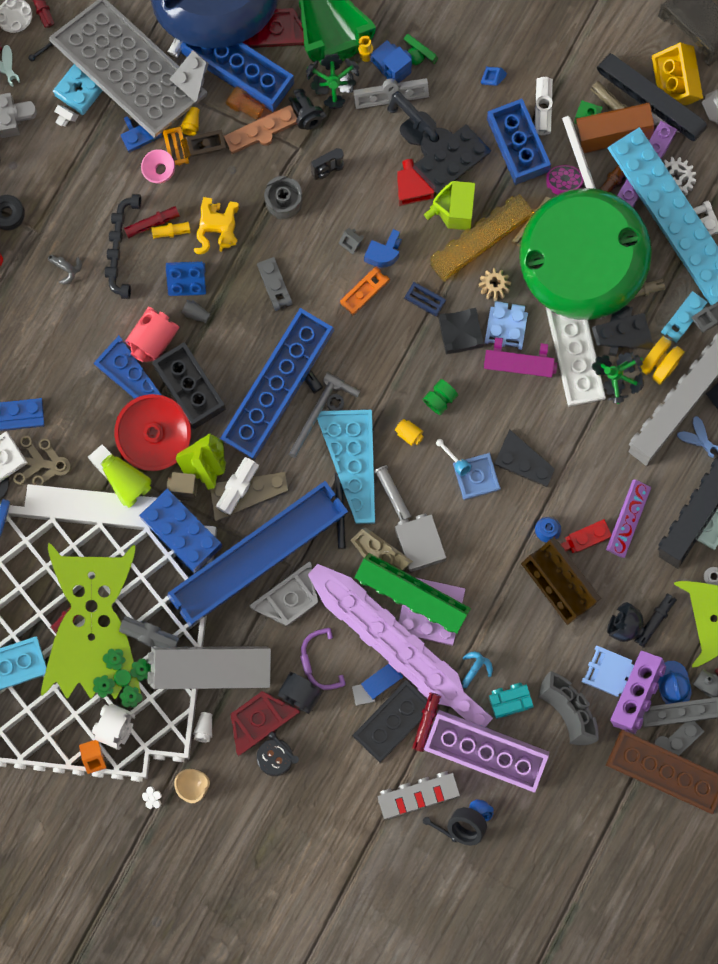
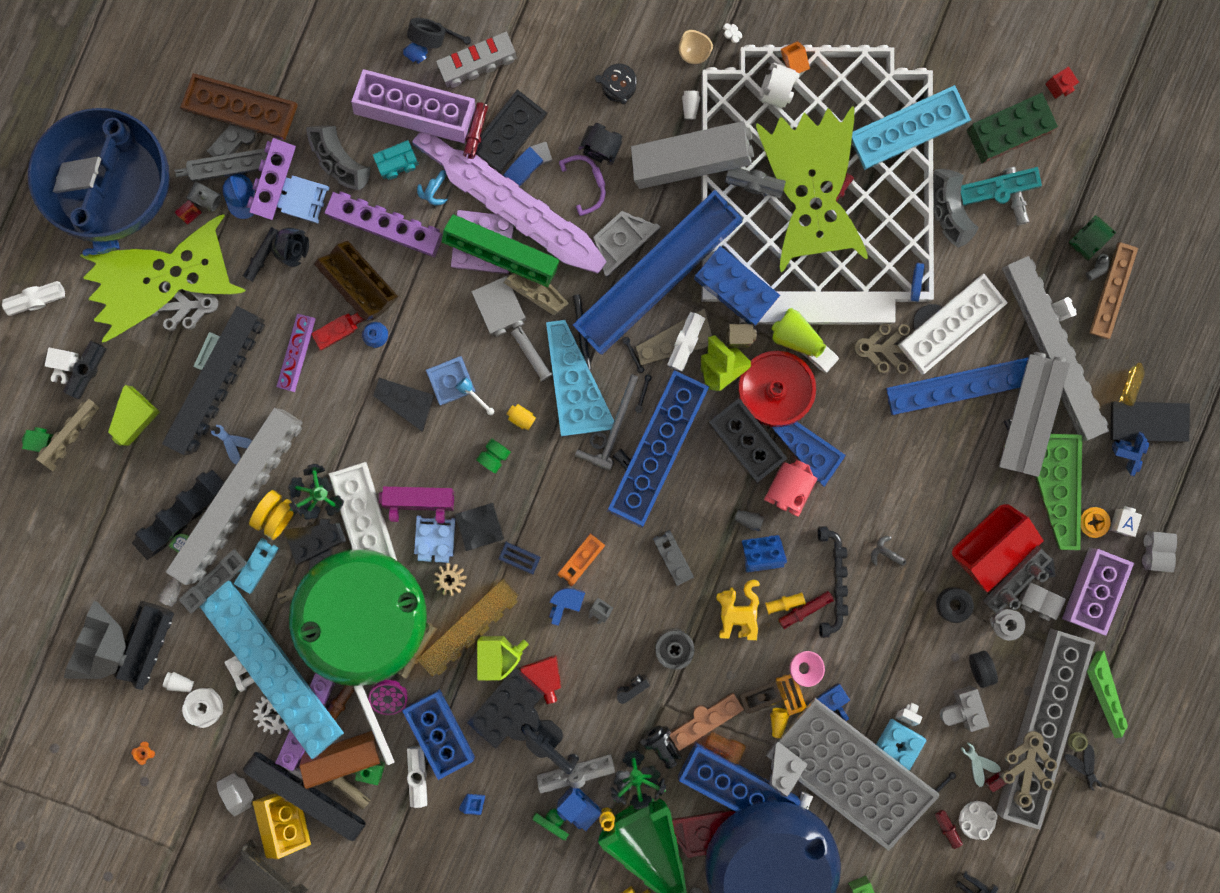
camera: 165 degrees right, 10 degrees up
(122, 678) = (776, 136): green plant -> none
(257, 719) = (639, 116): dark red wing -> none
(285, 468) = (626, 340): none -> black hinge
(292, 430) = (648, 378): none -> black hinge
(522, 627) = (336, 210): none -> medium lavender brick

